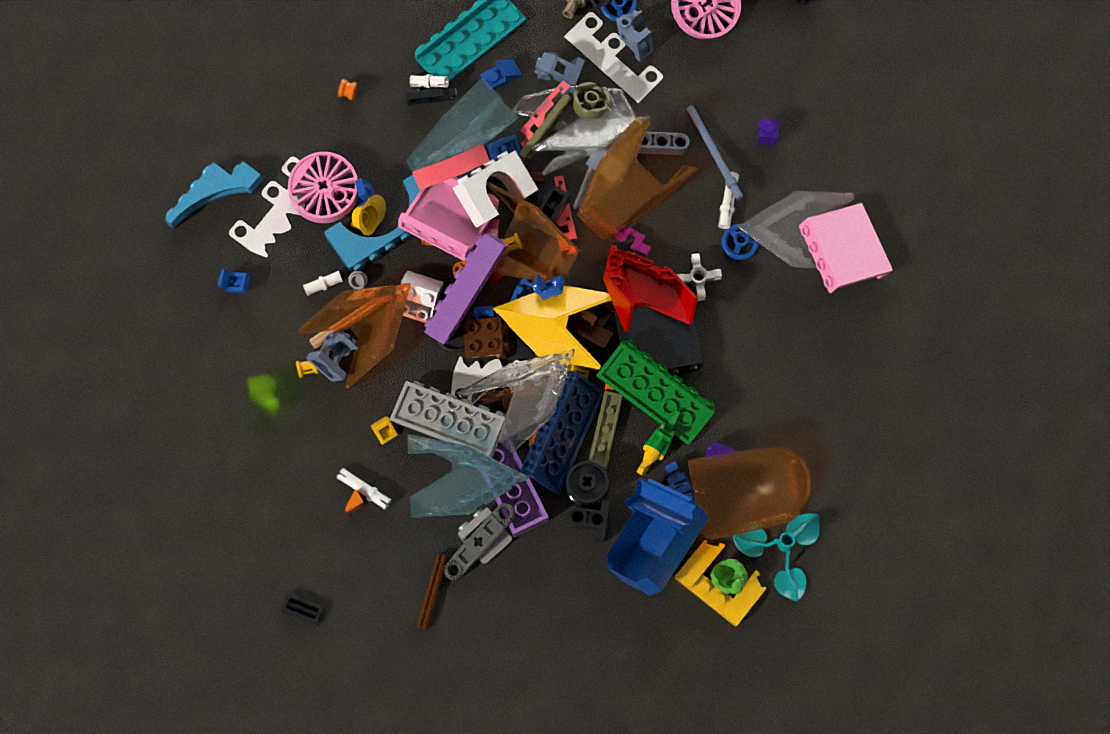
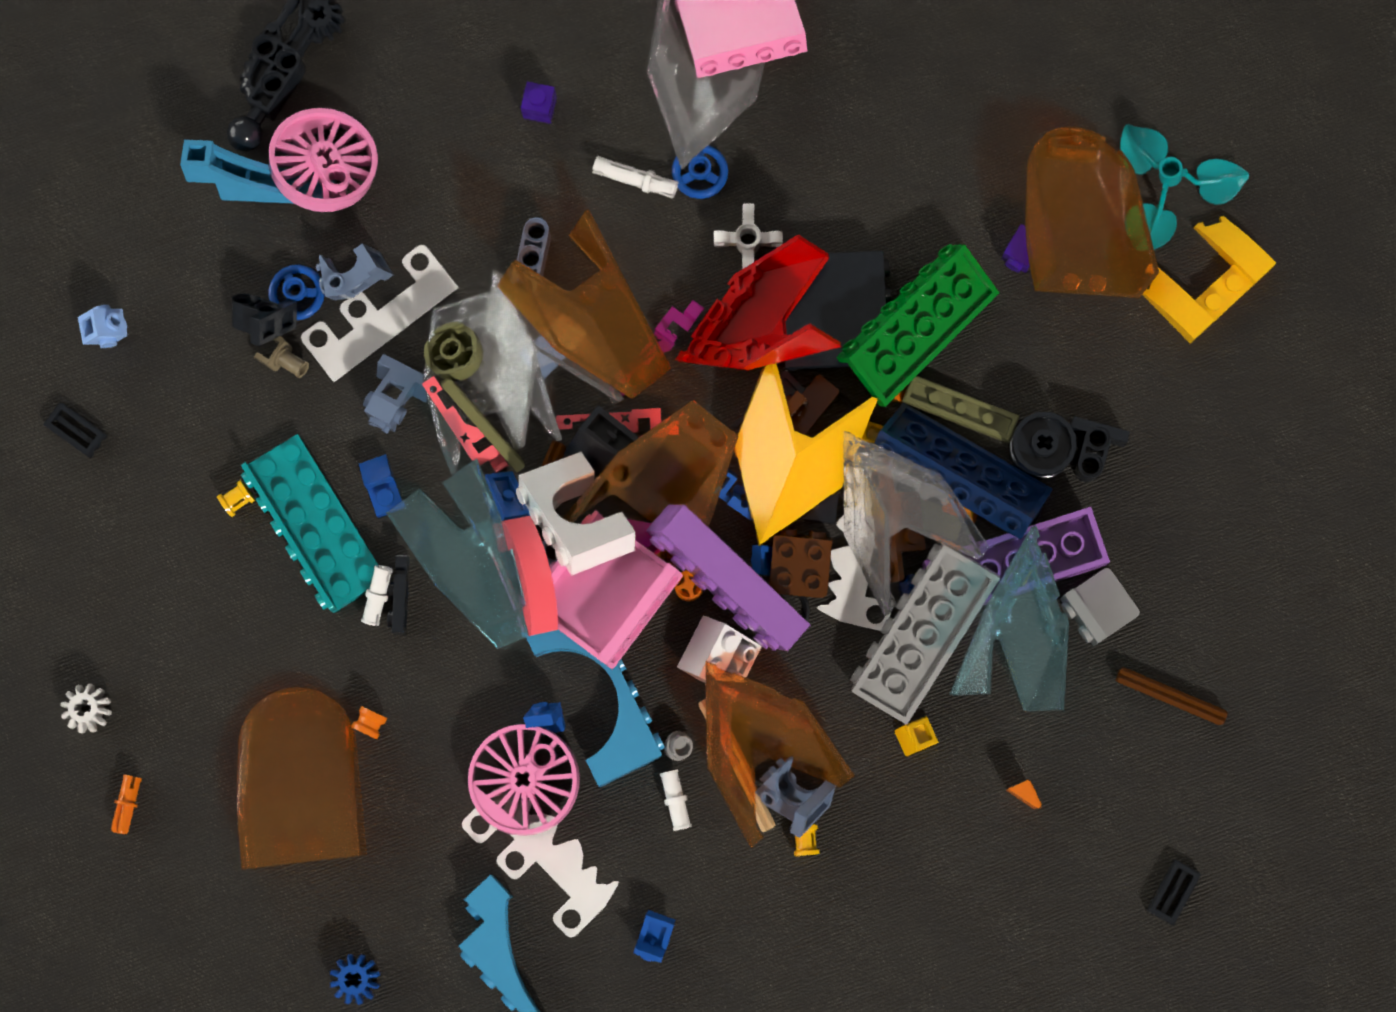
camera: 75 degrees left, 5 degrees up
(187, 112) = (354, 968): none -> blue gear
(262, 393) = (837, 914): clear neon green slope -> none
(304, 53) = (298, 782): none -> clear orange windscreen
(369, 216) = (580, 716): yellow piece -> none
(369, 492) = (1005, 776): white pin -> none
(469, 551) = (1099, 598): dark grey piece -> none
(517, 244) = (657, 502): yellow bush -> none
(550, 288) = (743, 454): blue bracket -> none
(655, 536) = (1141, 357): blue piece -> none
(658, 444) = (995, 335): green animal -> none
(677, 481) = (1057, 315): blue piece -> none
(729, 576) = (1205, 262): bright green hair -> none
(731, 181) = (610, 166): sand blue bar -> none

